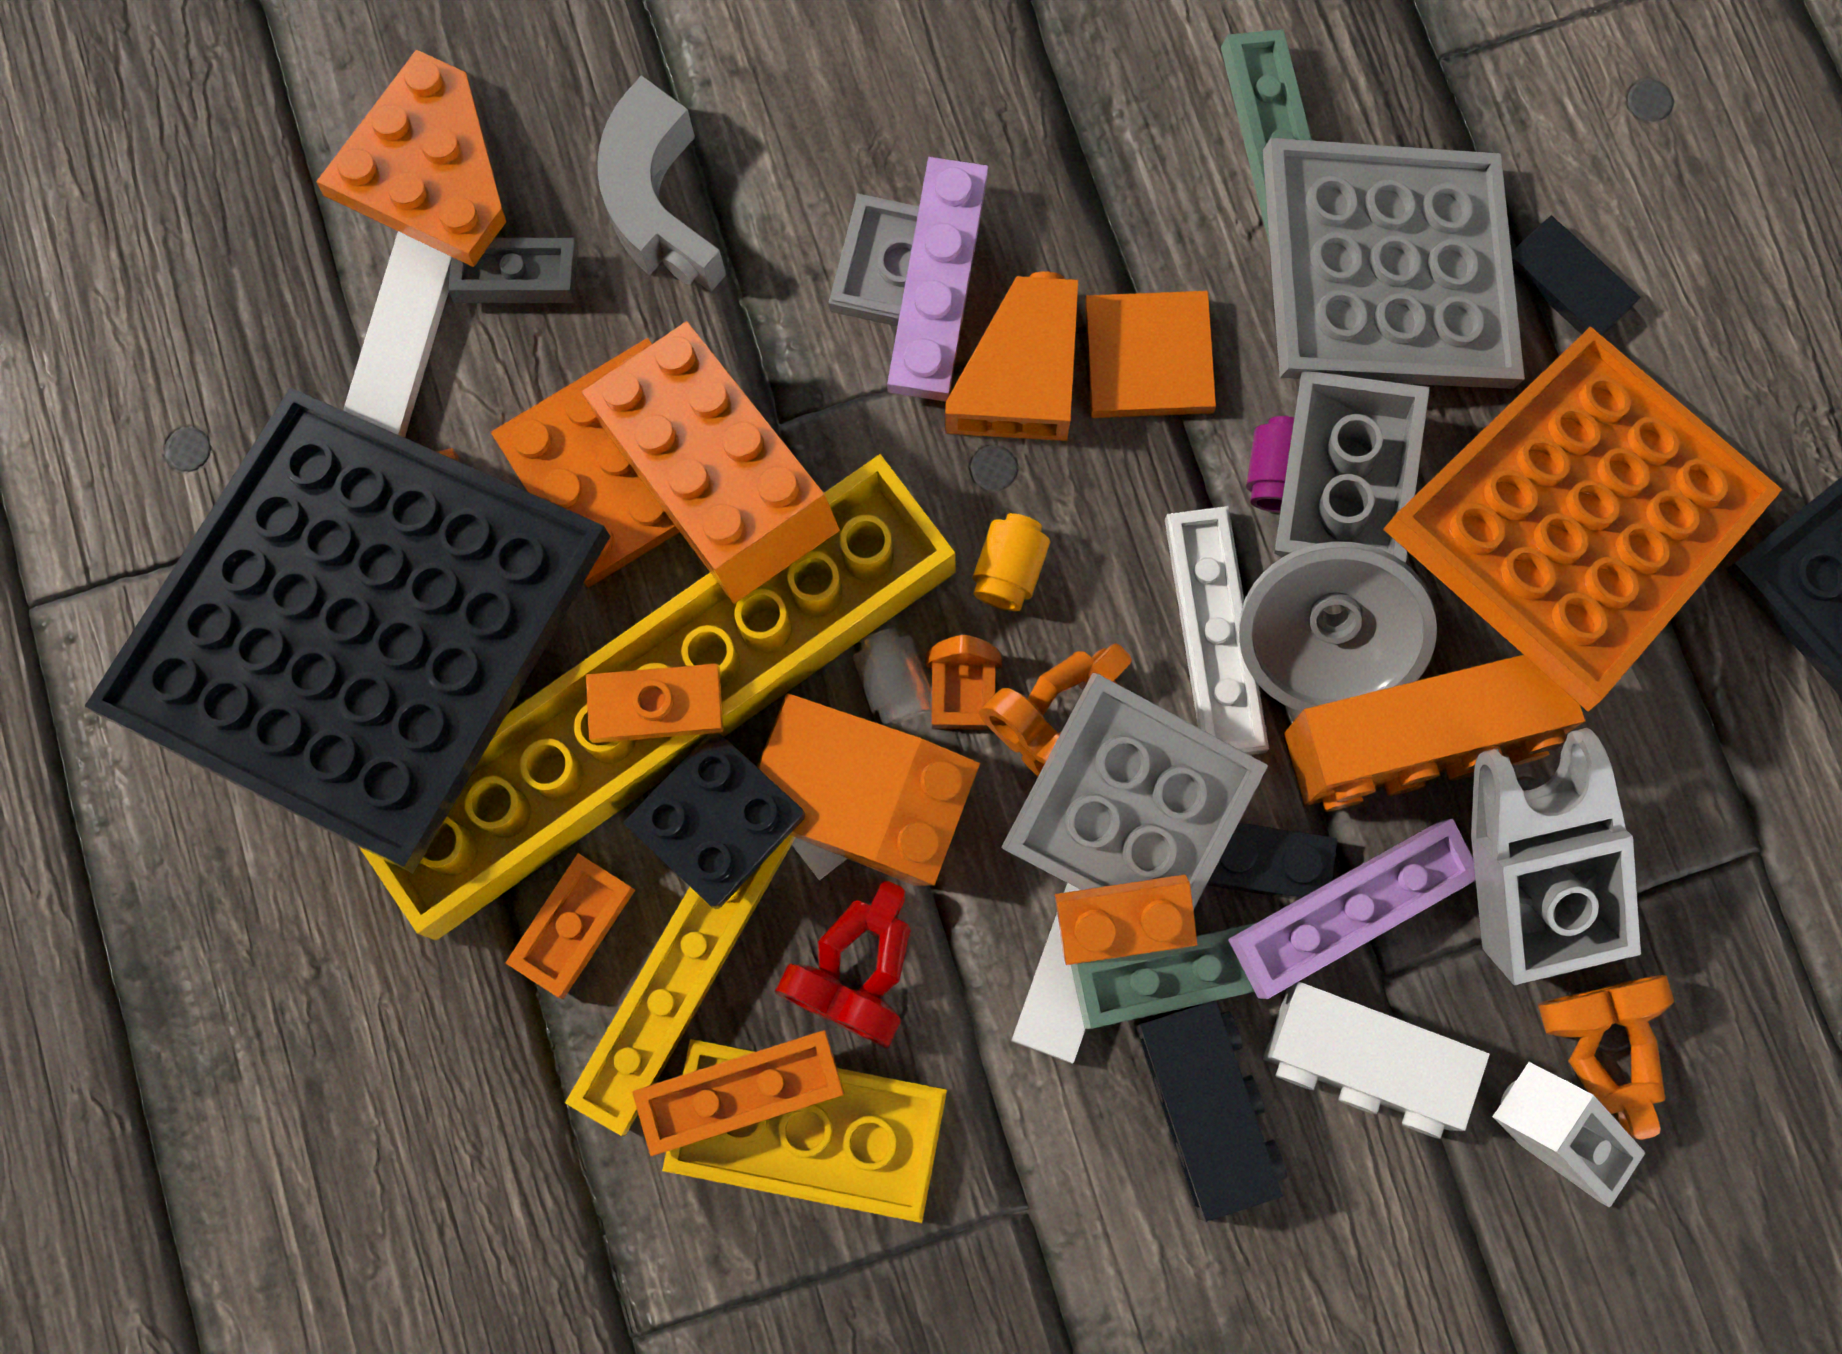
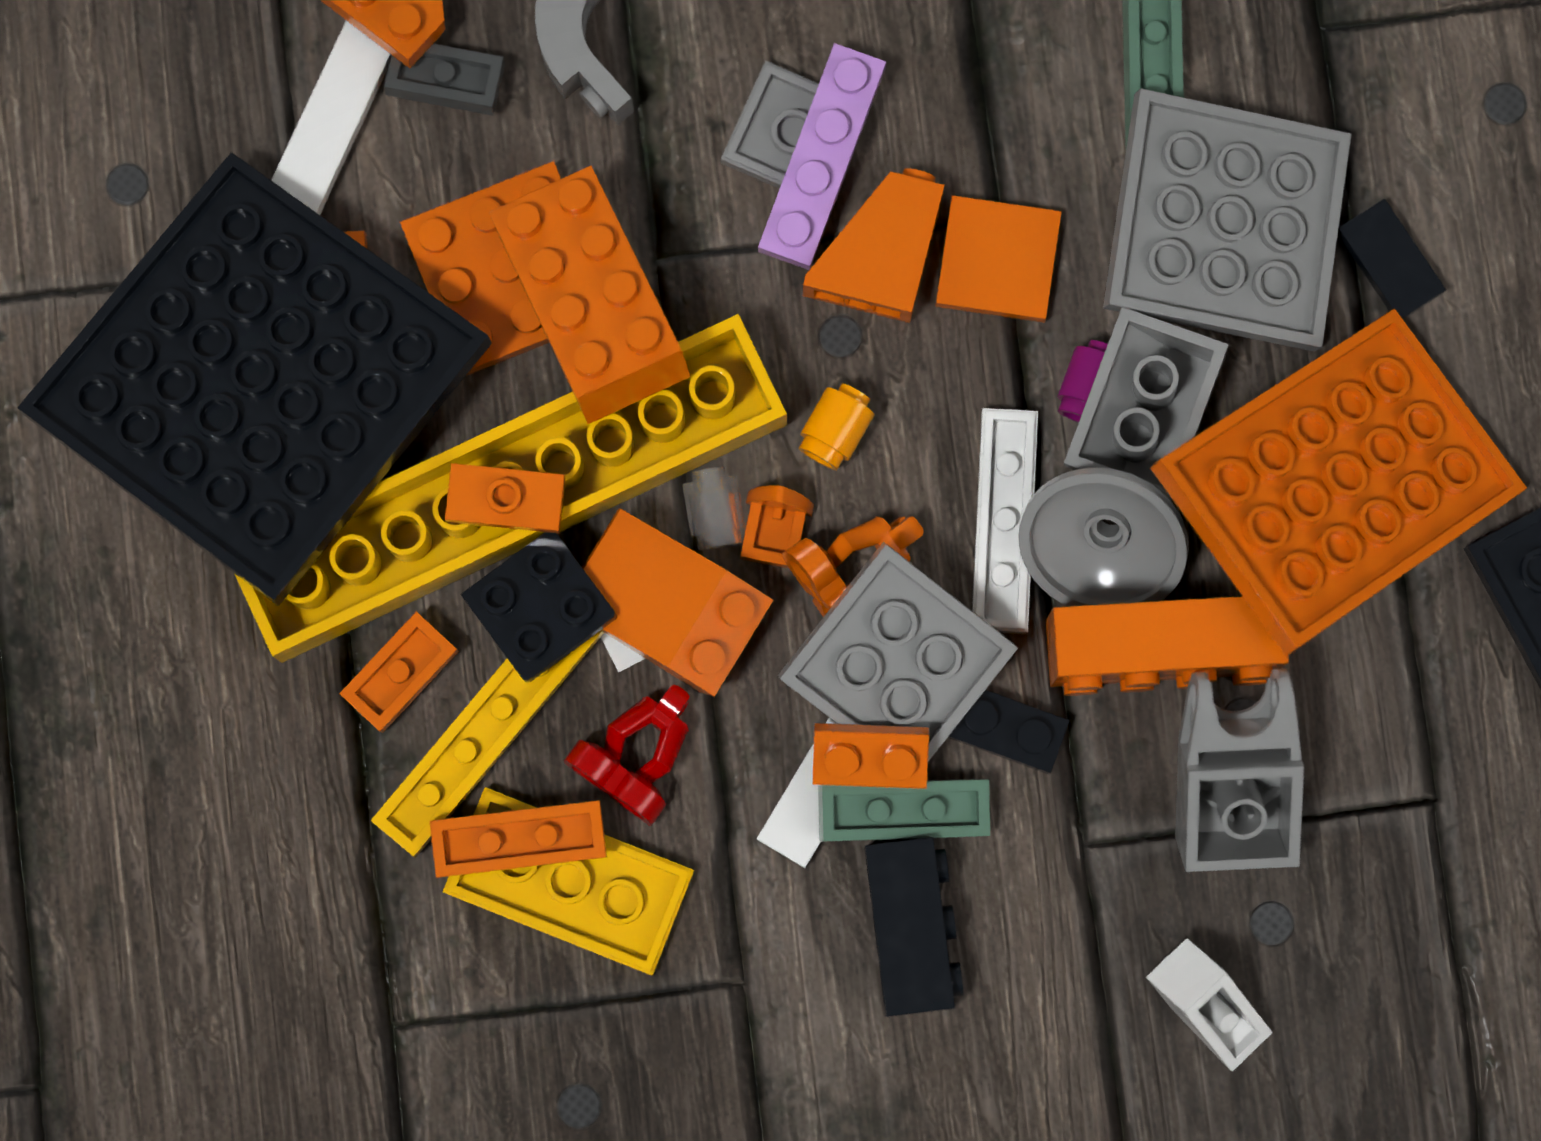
camera: 10 degrees right, 5 degrees up
(1354, 908) = (1068, 782): lavender plate -> none
(1375, 1060) = (1058, 912): white brick -> none
(1588, 1017) = (1246, 911): orange piece -> none

